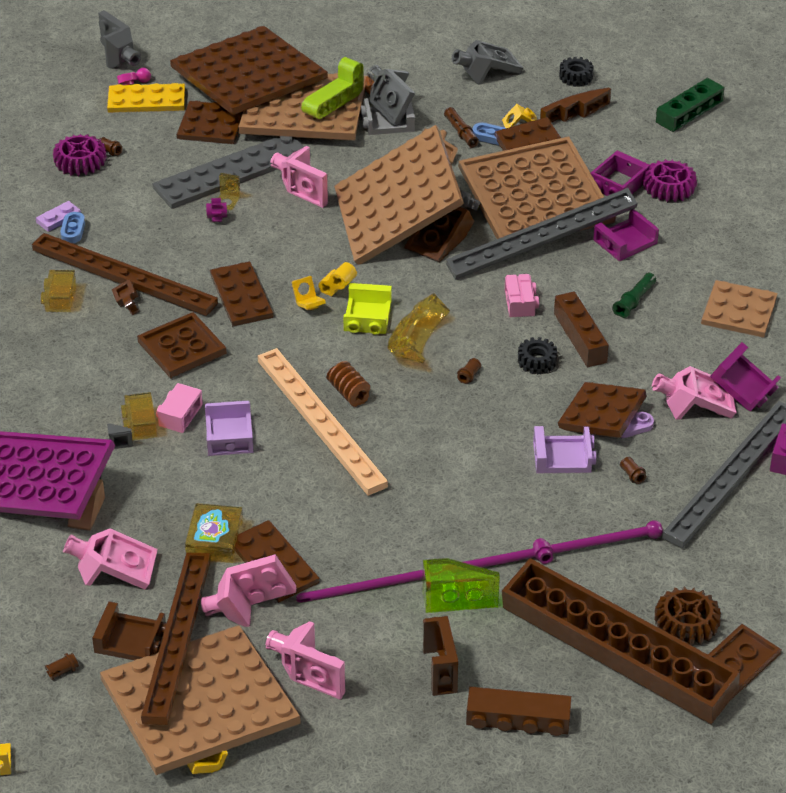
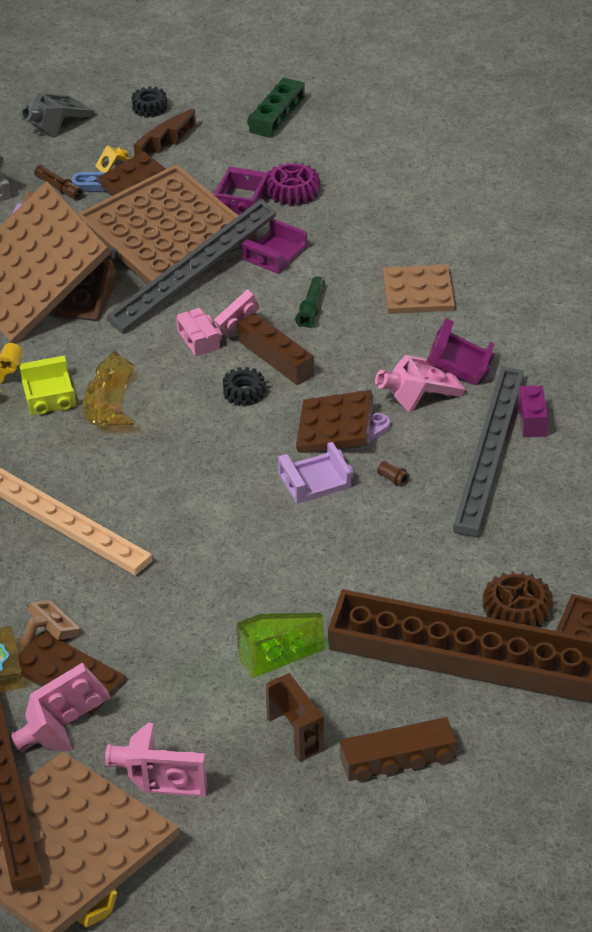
camera: 20 degrees left, 0 degrees up
(280, 512) = (50, 617): none -> medium nougat plate
(349, 383) = (64, 466): dark orange piece -> none
(467, 373) = (181, 420): reddish brown pin -> none
(540, 550) = (340, 579): magenta bar -> none
(559, 285) = (238, 310): none -> bright pink slope

